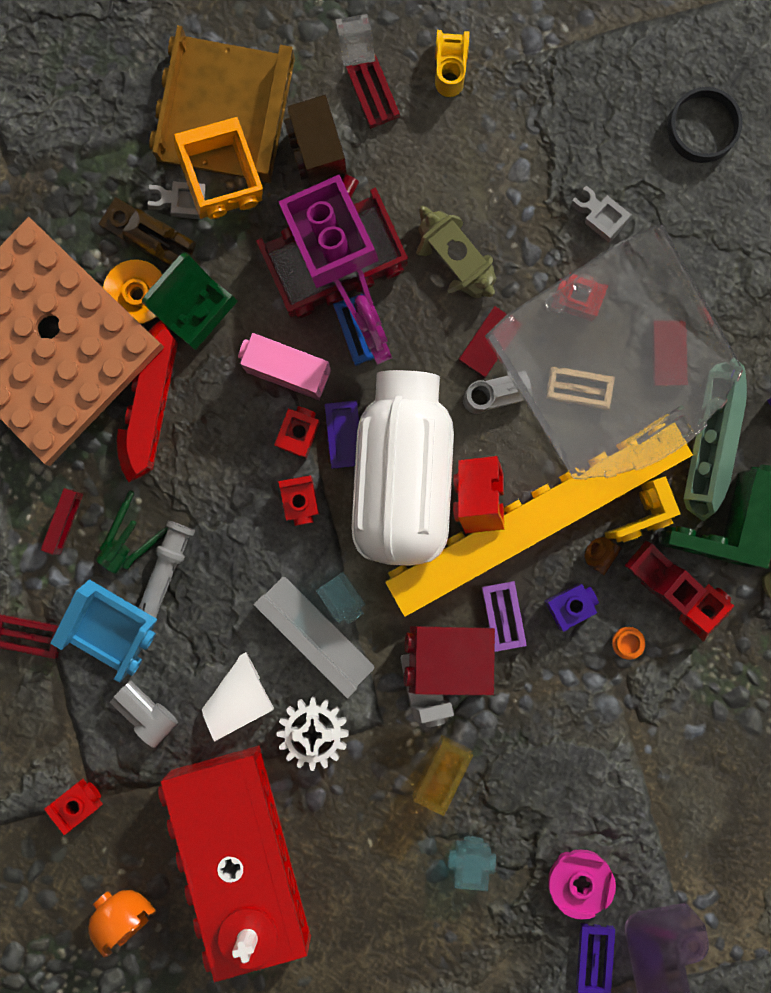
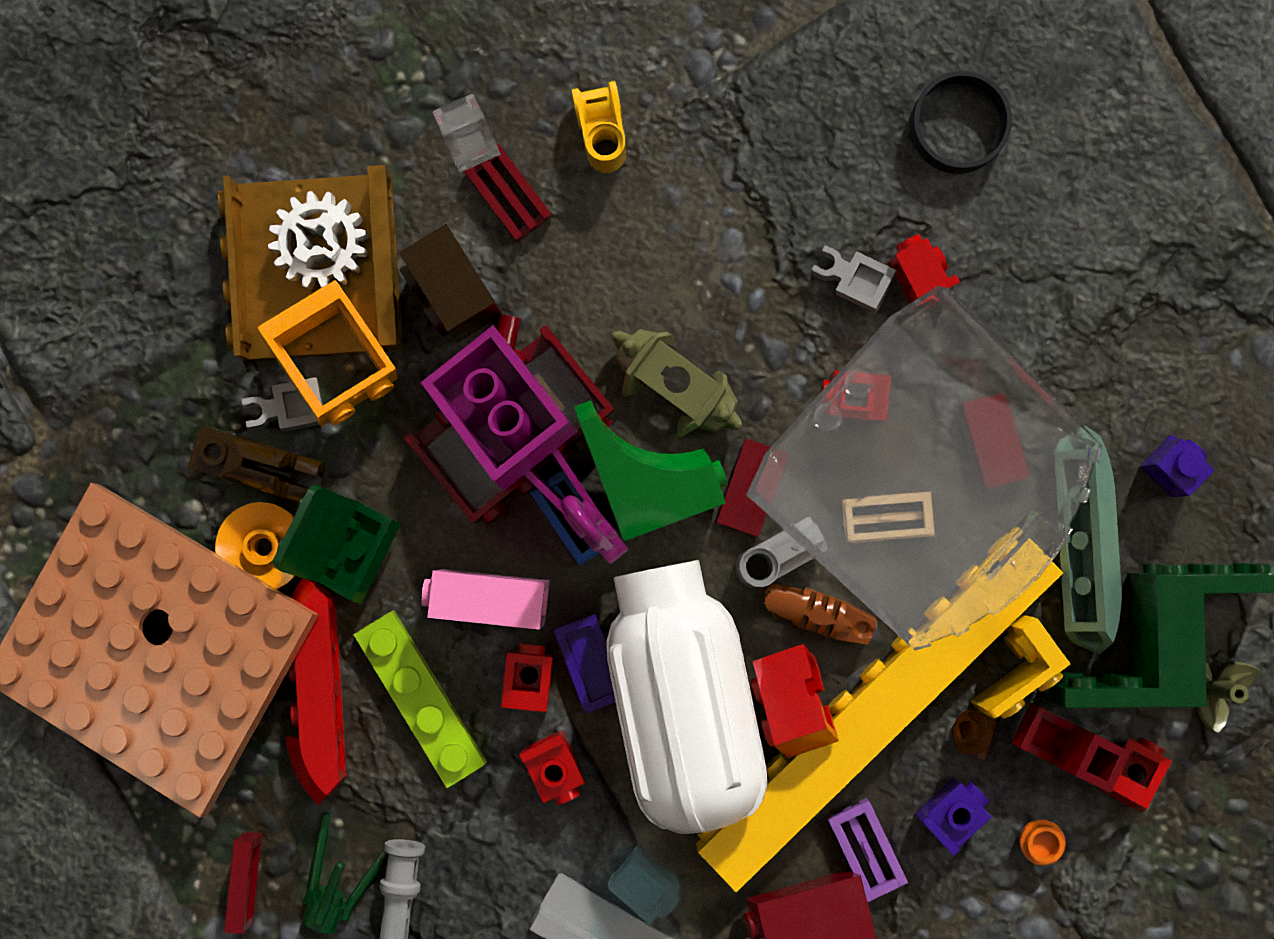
camera: 15 degrees left, 0 degrees up
(218, 428) = (420, 698): none -> lime plate
(238, 79) = (307, 254): none -> white gear
(416, 320) = (648, 486): none -> green arch
(515, 441) = (820, 613): none -> dark orange hinge
(647, 213) = (920, 267): none -> red brick

